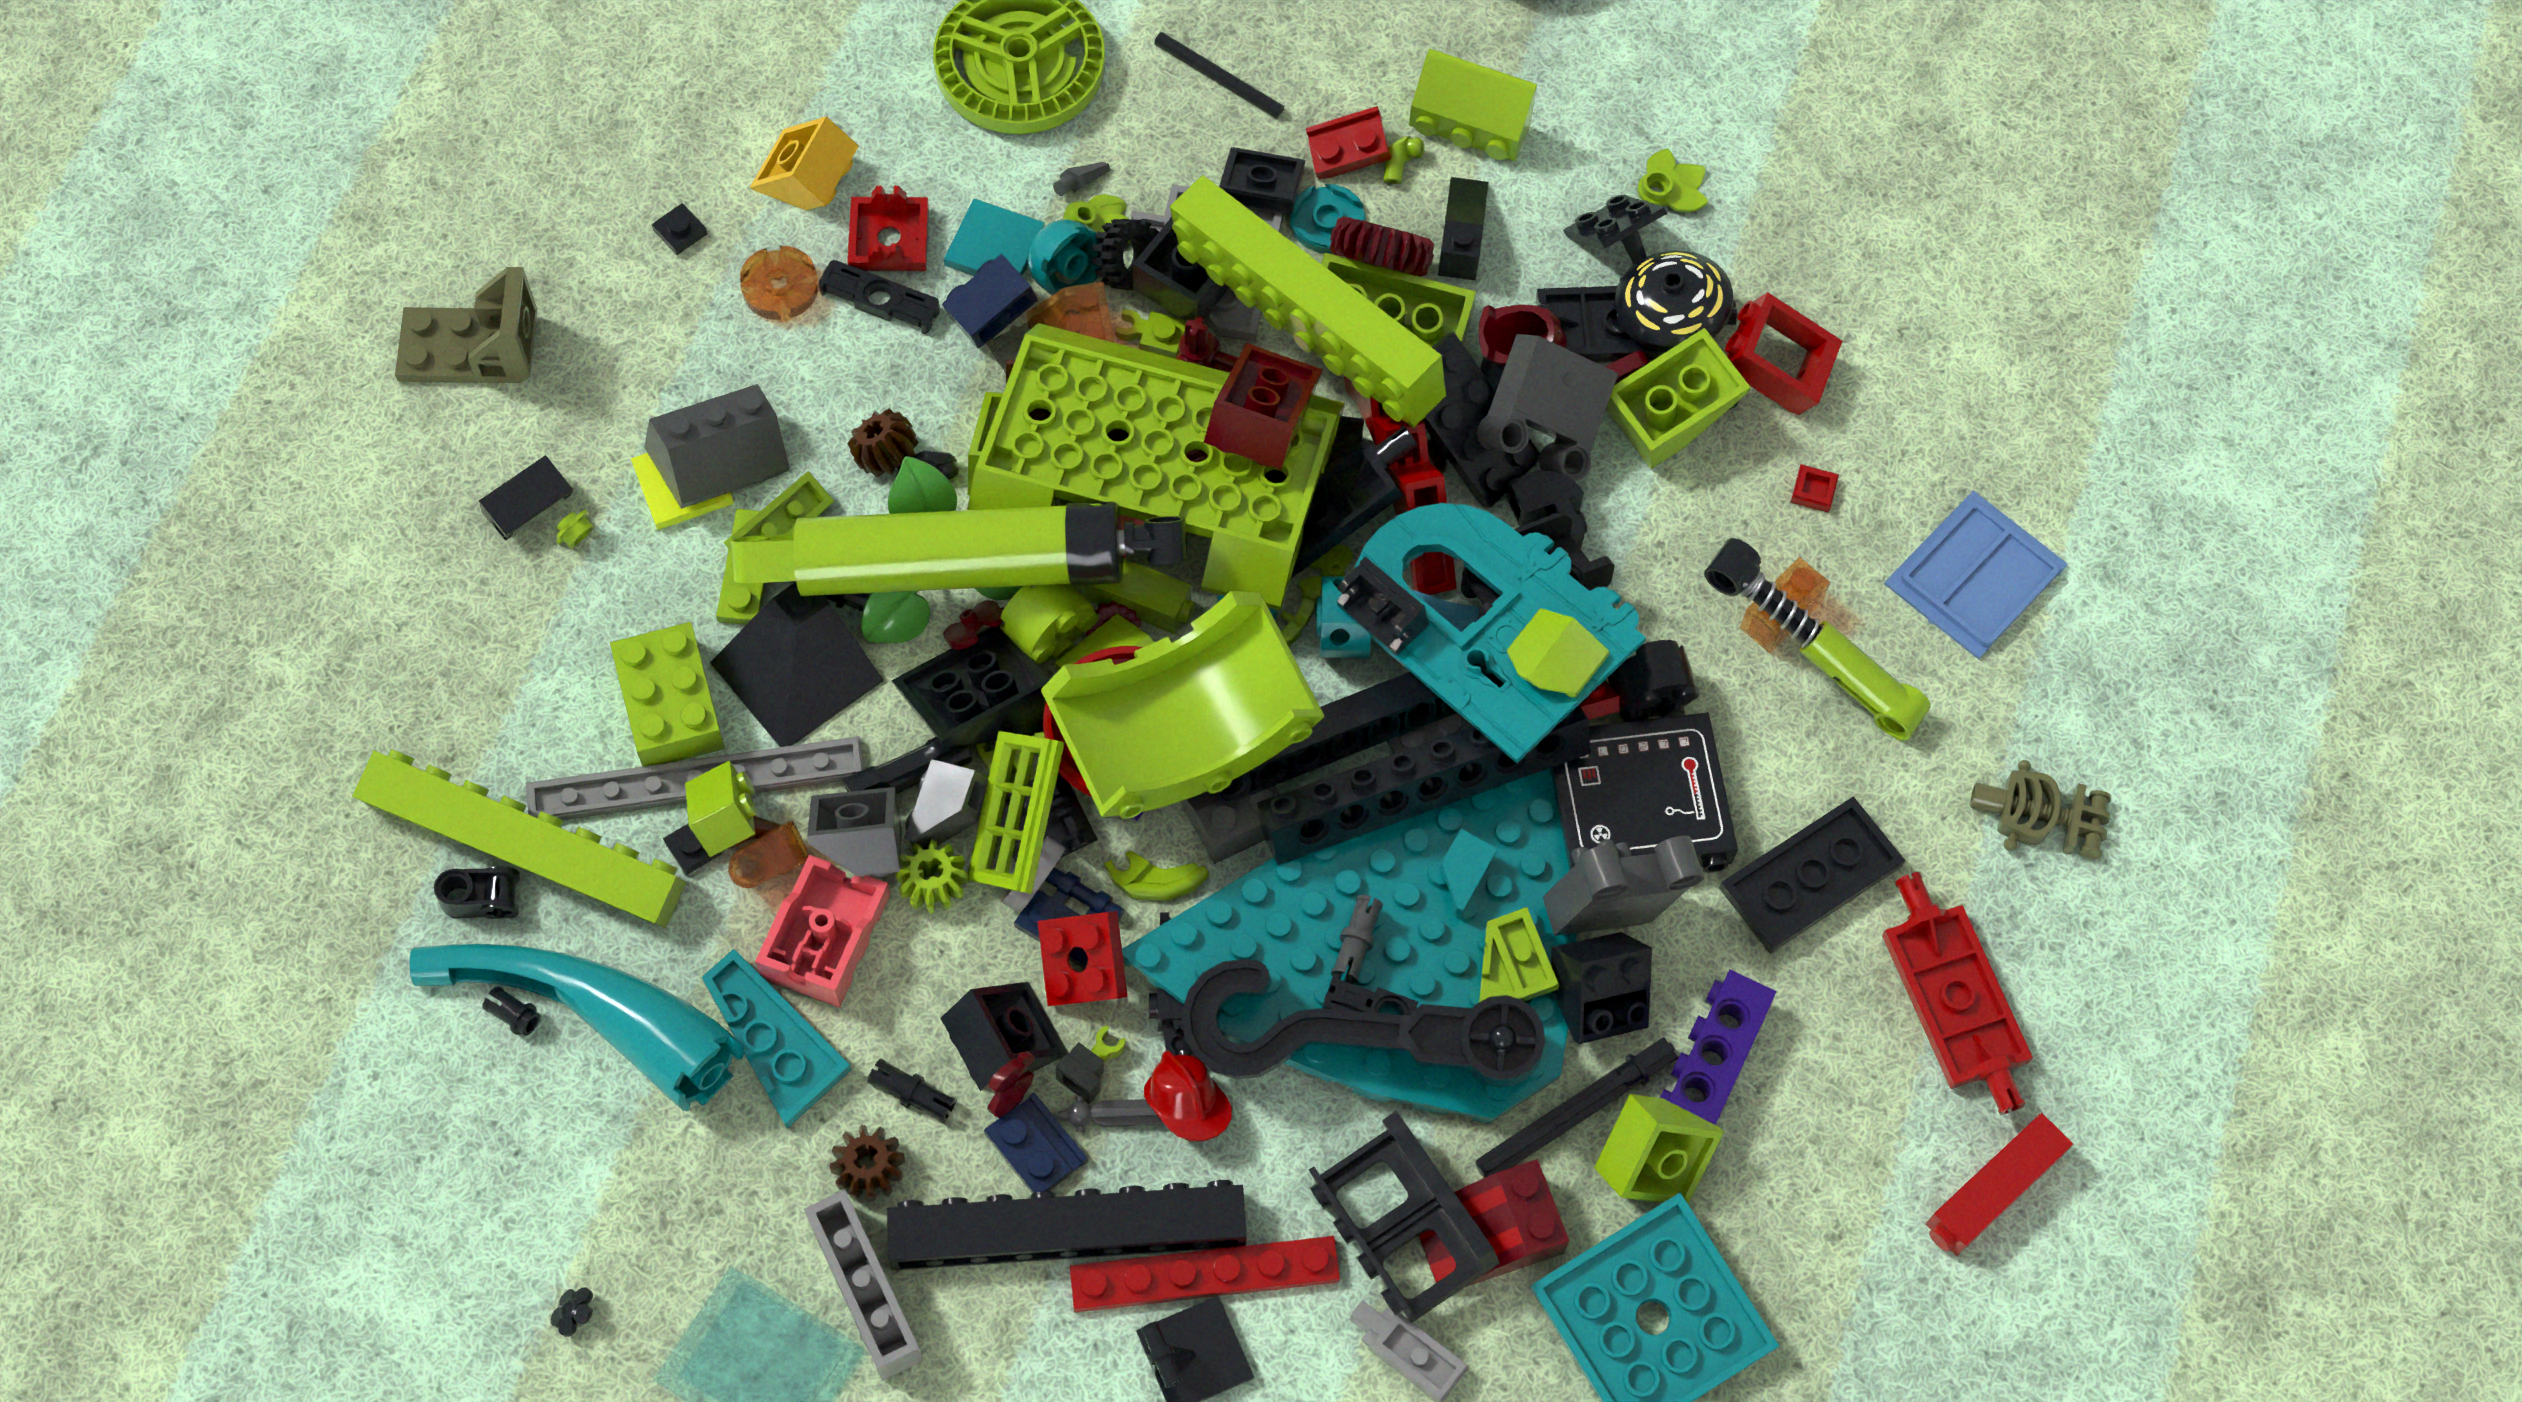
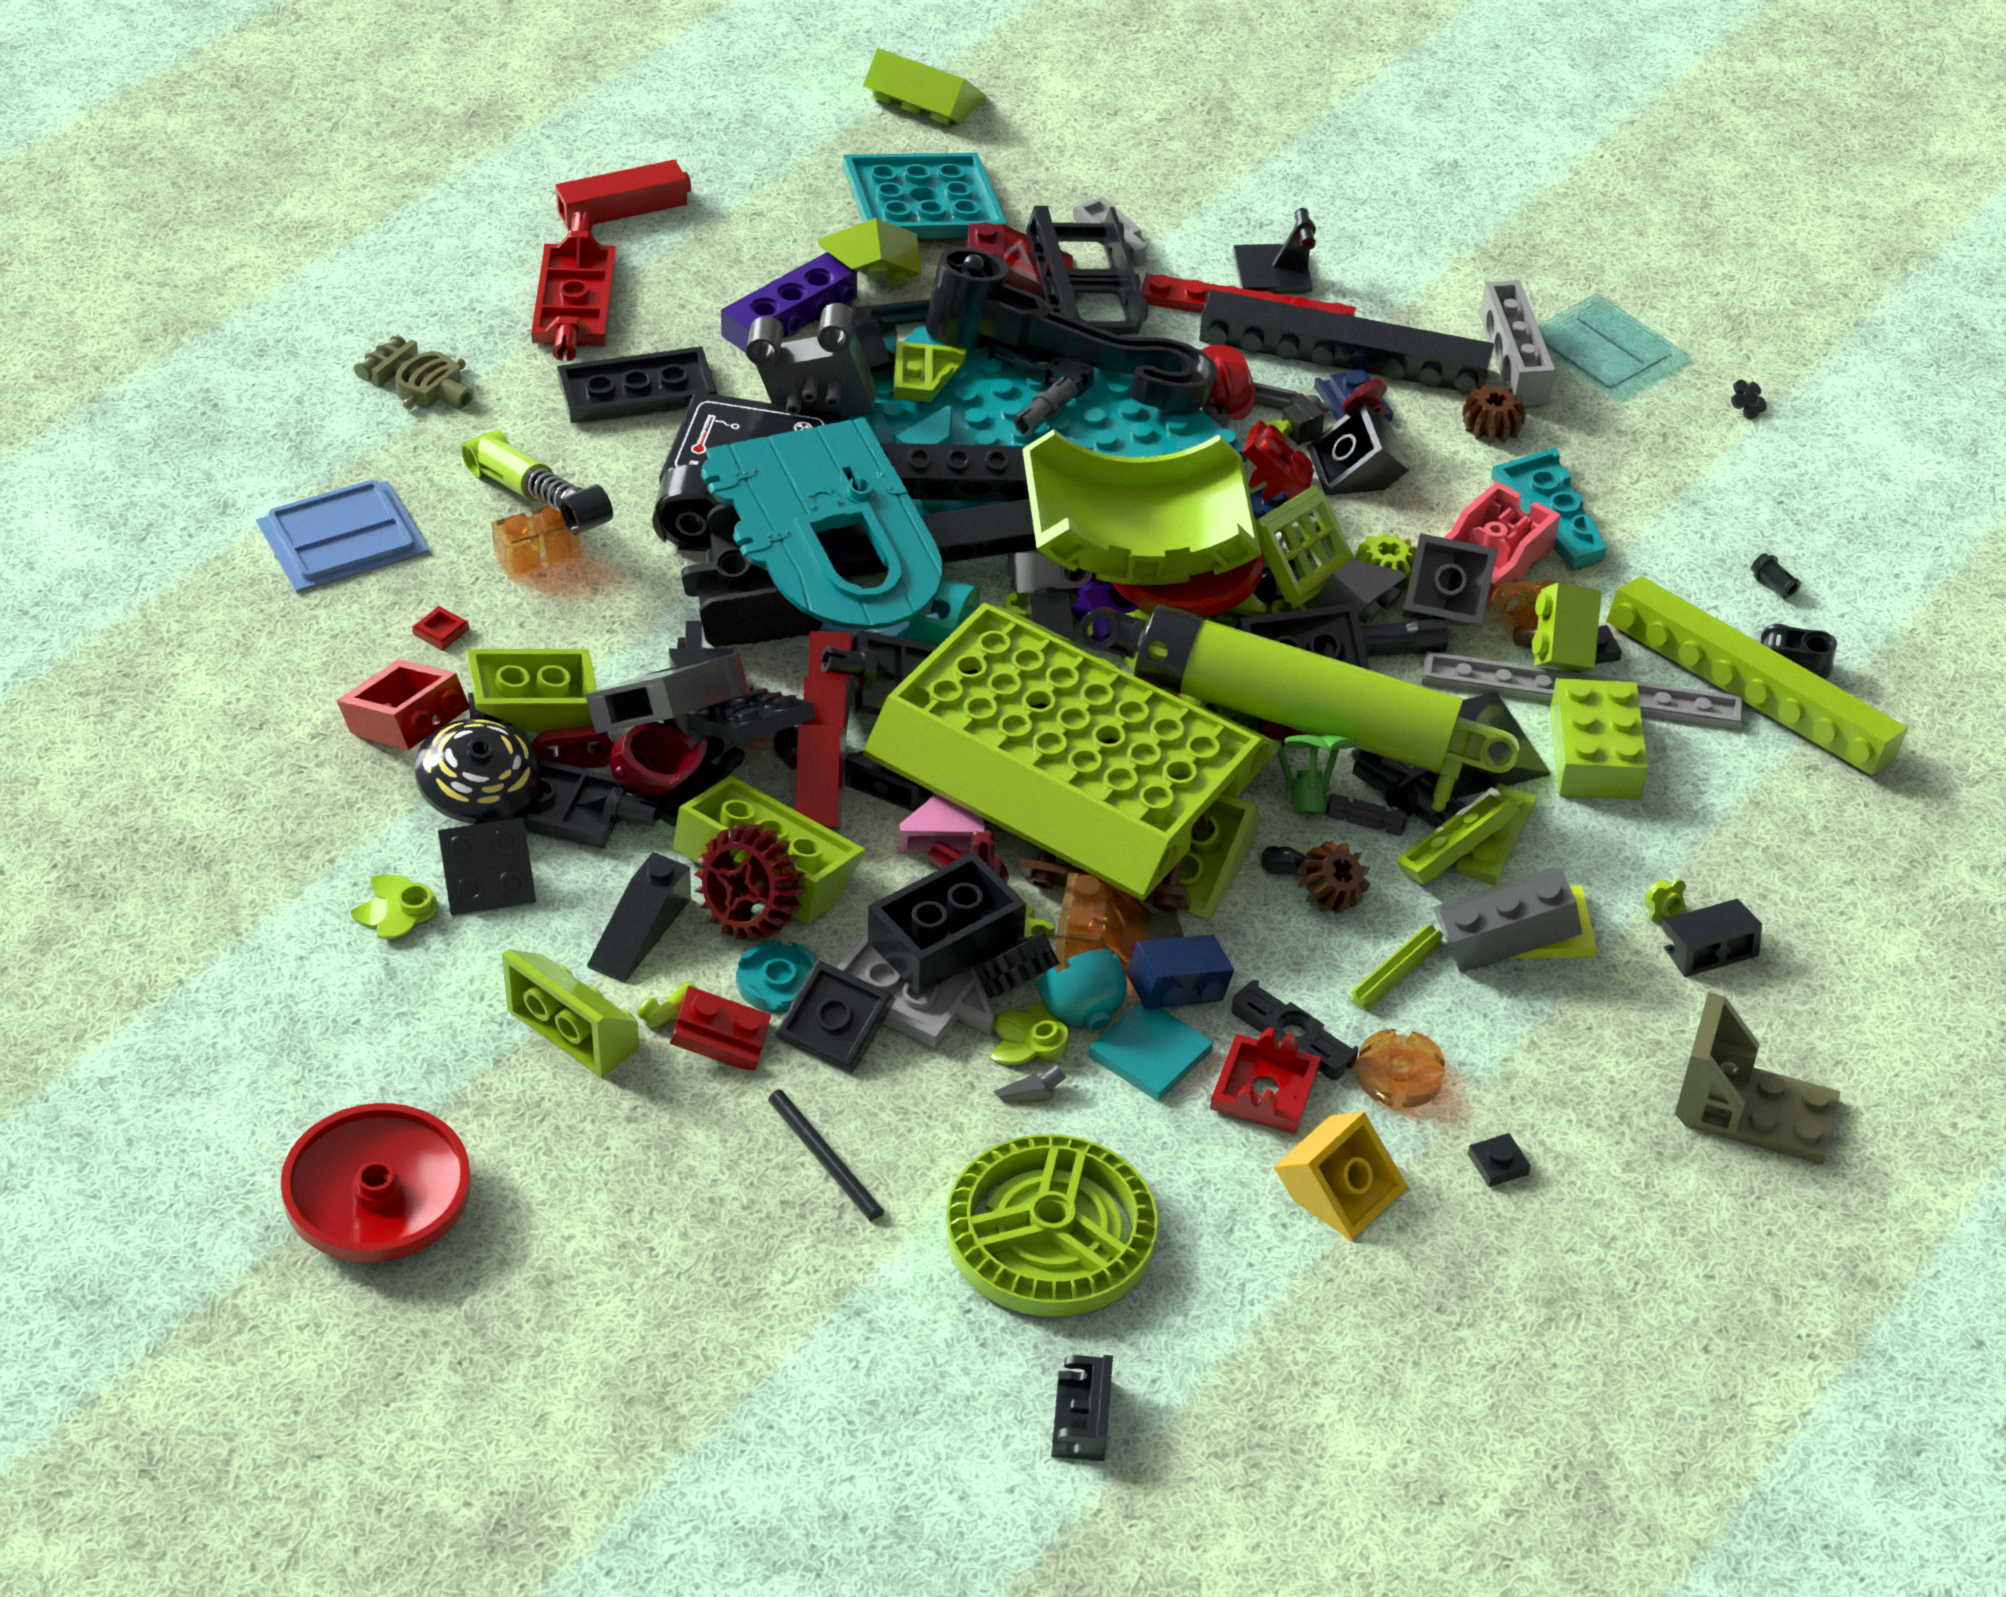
camera: 160 degrees left, 20 degrees down
(652, 1028) = (1662, 524): teal brick -> none
(807, 386) = (1396, 967): none -> lime axle
(911, 1090) = (1444, 450): black pin -> none
(1262, 406) = (960, 697): dark red slope -> none
(1308, 302) = (880, 760): lime brick -> none
(1382, 606) = (919, 548): black hinge -> none
(1556, 653) = (794, 461): lime slope -> none

